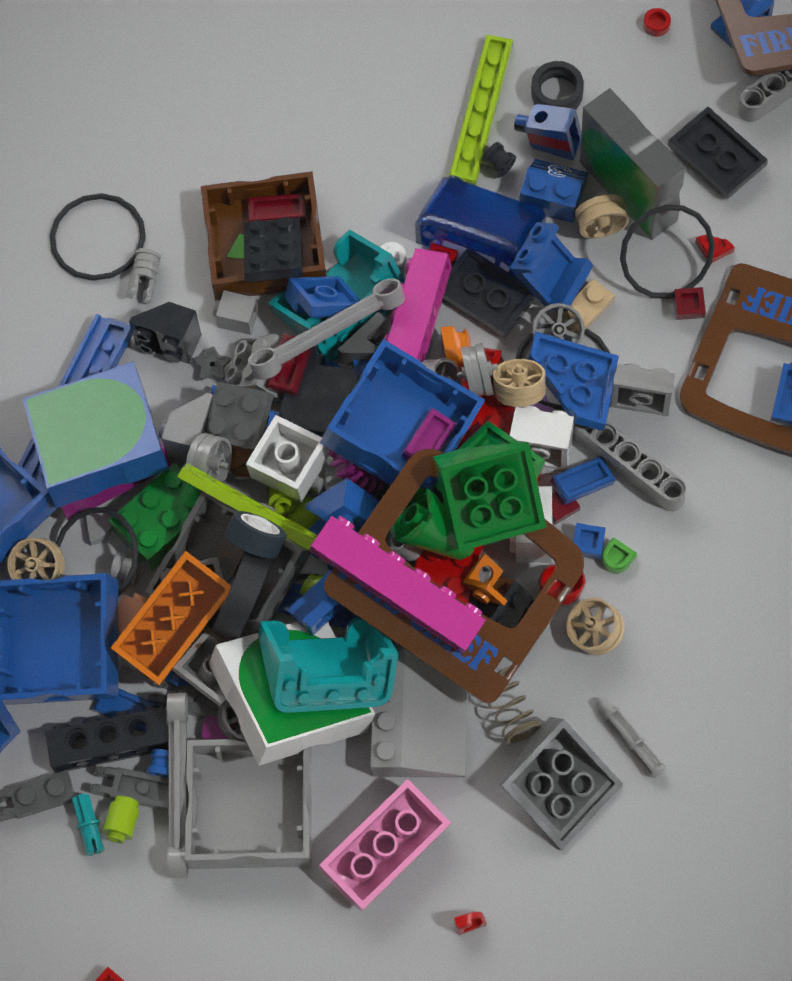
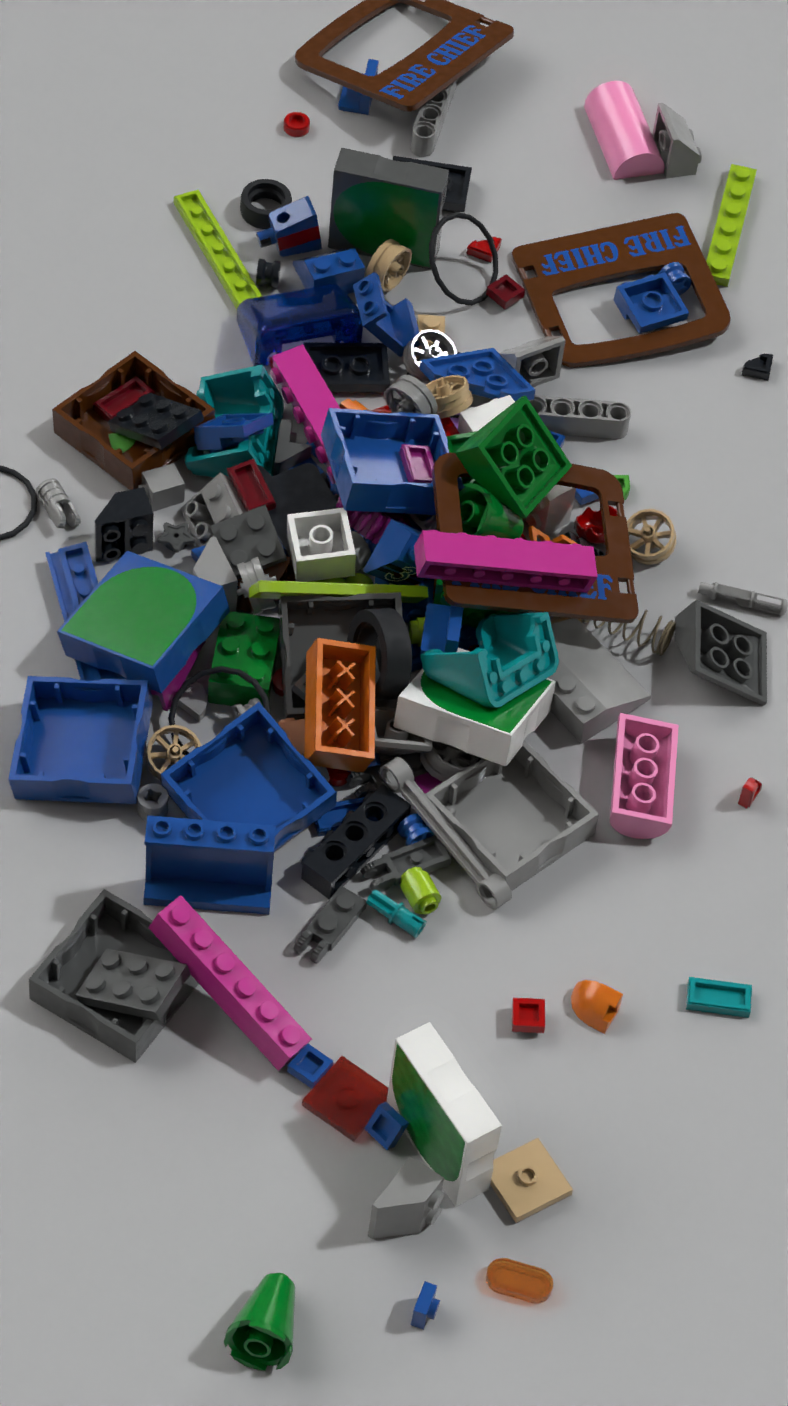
camera: 50 degrees left, 15 degrees down
(255, 534) = (361, 594): black wheel -> none
(267, 361) = (239, 487): light grey piece -> none

